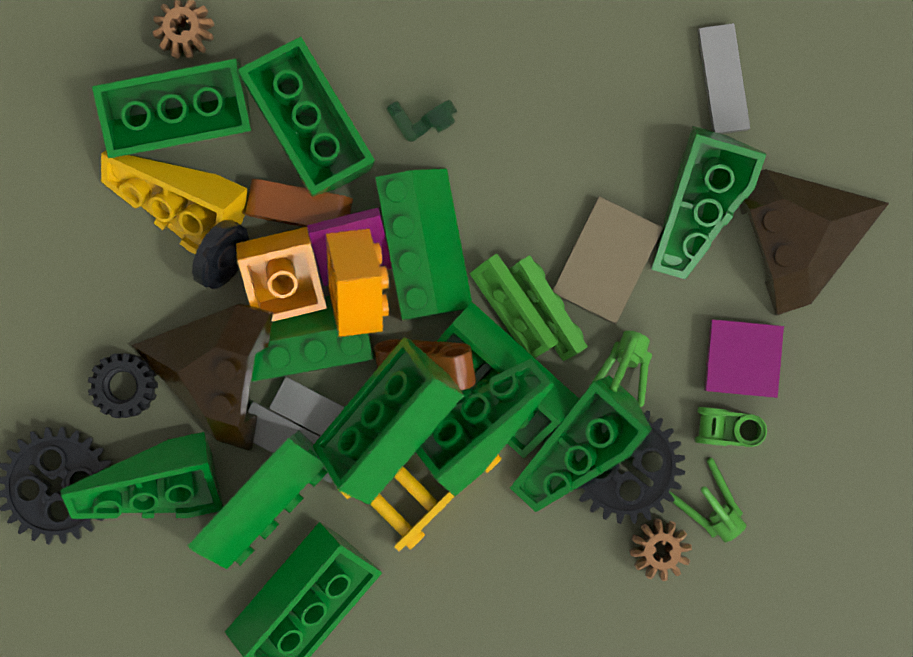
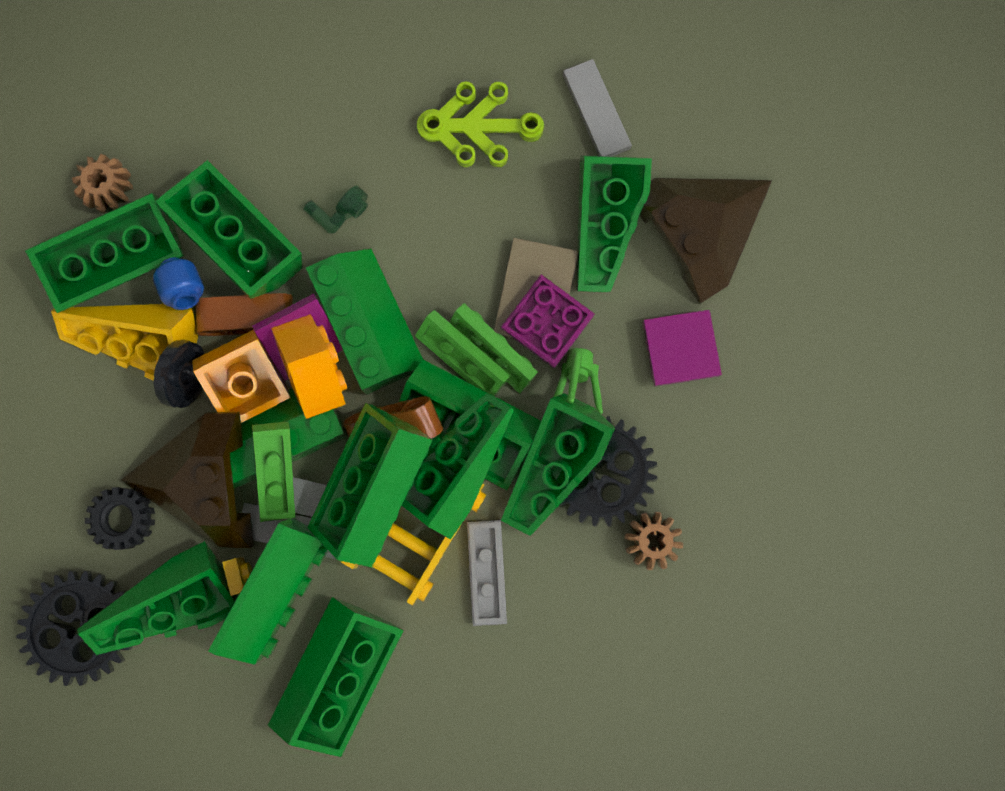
camera: 15 degrees left, 5 degrees down
(230, 475) = (236, 574): none -> yellow plate
(240, 159) = (178, 283): none -> blue head
(293, 381) = (274, 471): none -> bright green plate
(481, 536) = (486, 573): none -> light grey tile
(589, 64) = (475, 126): none -> lime plant
(611, 295) = (547, 321): none -> magenta tile
(725, 519) = (705, 496): bright green plant -> none
(726, 428) = (683, 413): bright green piece -> none

